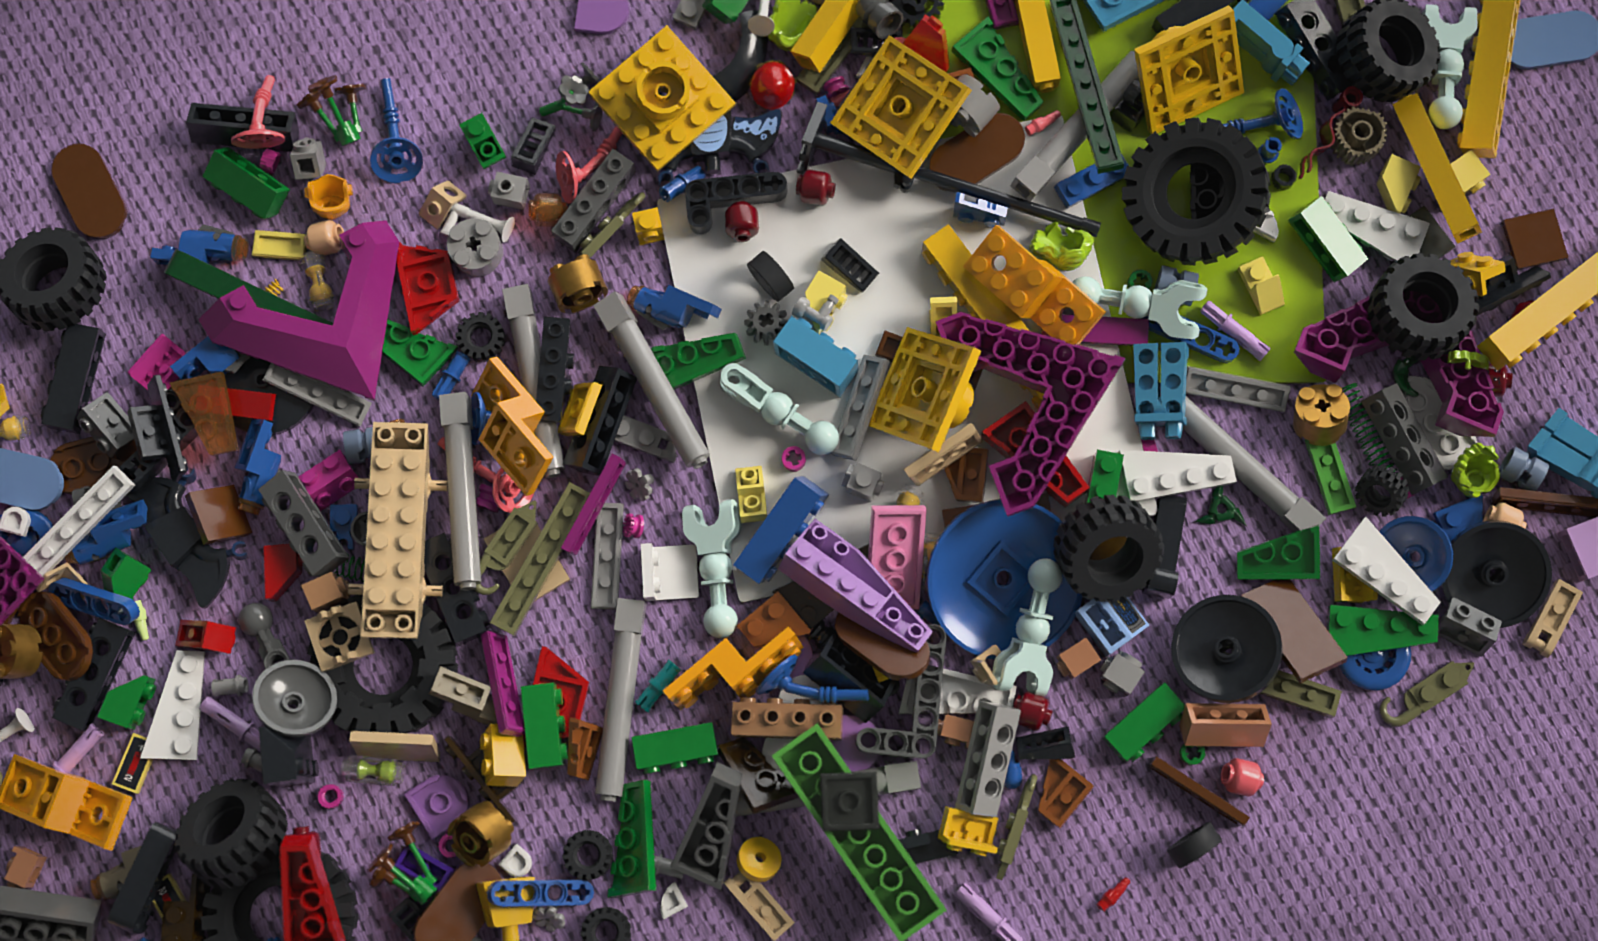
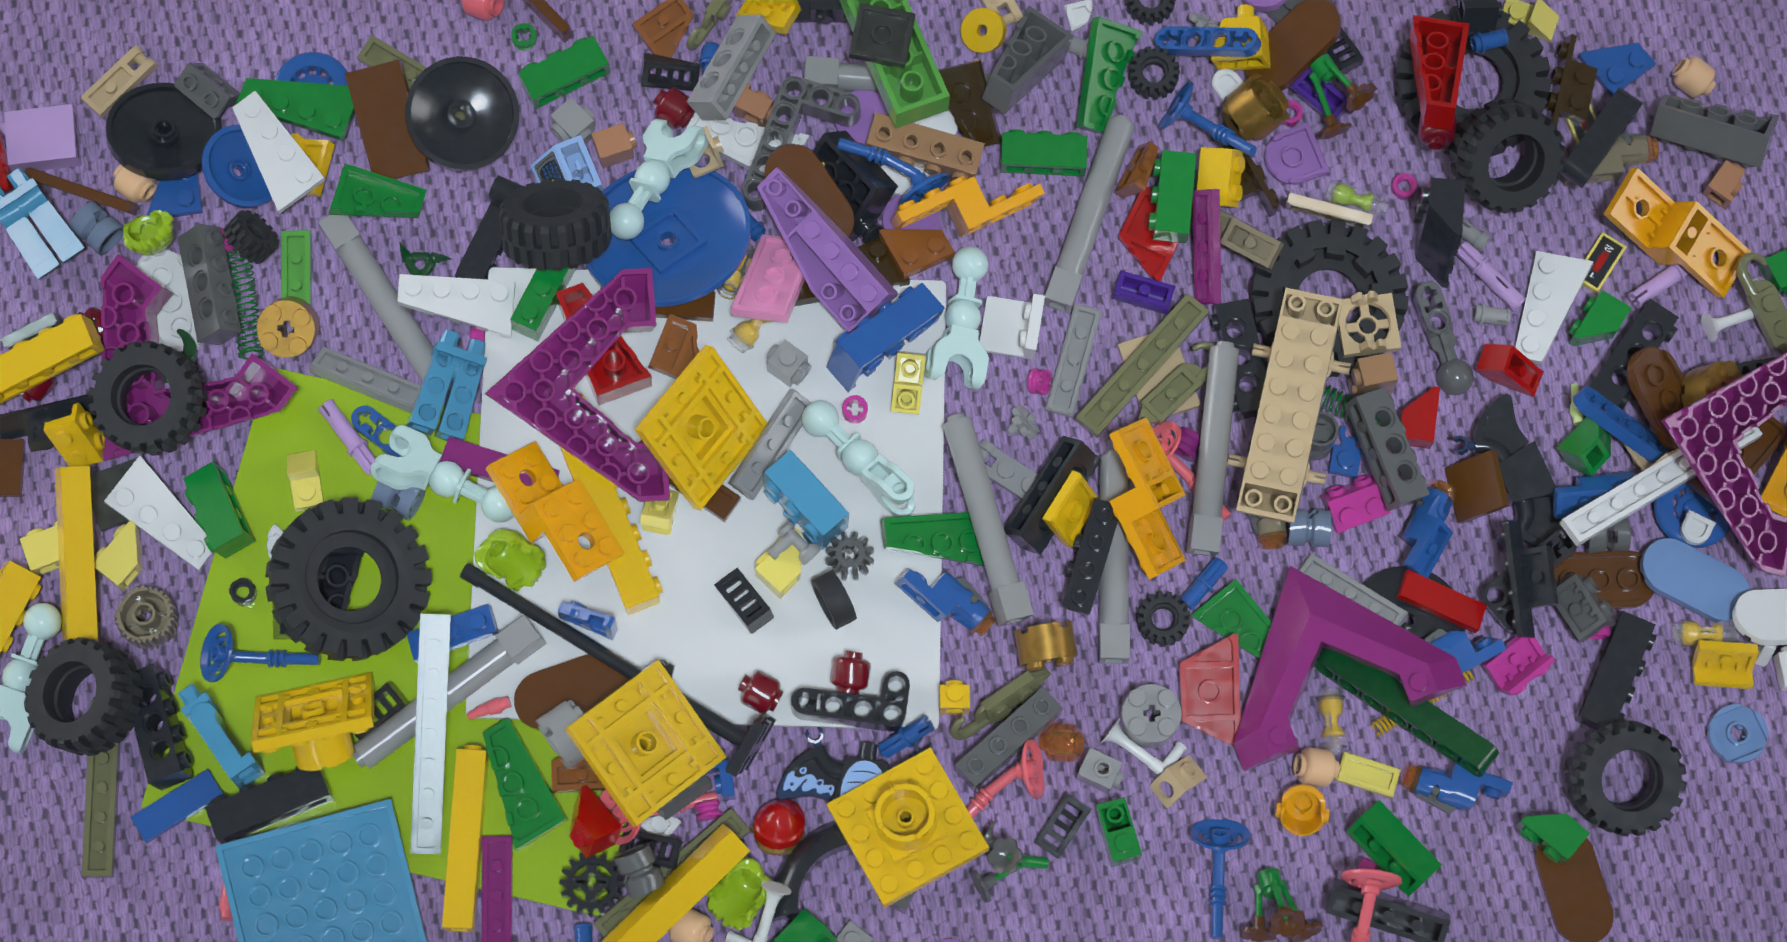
camera: 170 degrees left, 5 degrees down
(107, 223) = (1555, 833): none -> green slope
(209, 408) = (1469, 593): clear orange wing -> none
(296, 684) = (1403, 266): dark grey dish -> none
(308, 159) = (1319, 857): light grey brick -> none
(479, 416) = (1179, 523): blue dish -> none
(550, 817) = (1182, 109): none -> blue dish
(555, 632) = (1143, 292): none -> dark purple brick
(593, 504) = (1076, 407): magenta tile -> none
(657, 685) = (1048, 218): teal pin -> none
(950, 451) = (673, 366): tan tile -> none
(1133, 92) = (382, 712): black axle -> none
(1143, 274) = (428, 507): green bush -> none
(1225, 724) = (497, 48): nougat brick -> none
(1270, 150) = (256, 621): blue pin -> none
(1348, 98) = (145, 654): dark red flag -> none
(1429, 692) = (267, 41): olive plate -> none
(1470, 358) = (117, 338): lime piece -> none
(1547, 357) = (30, 331): none -> tile

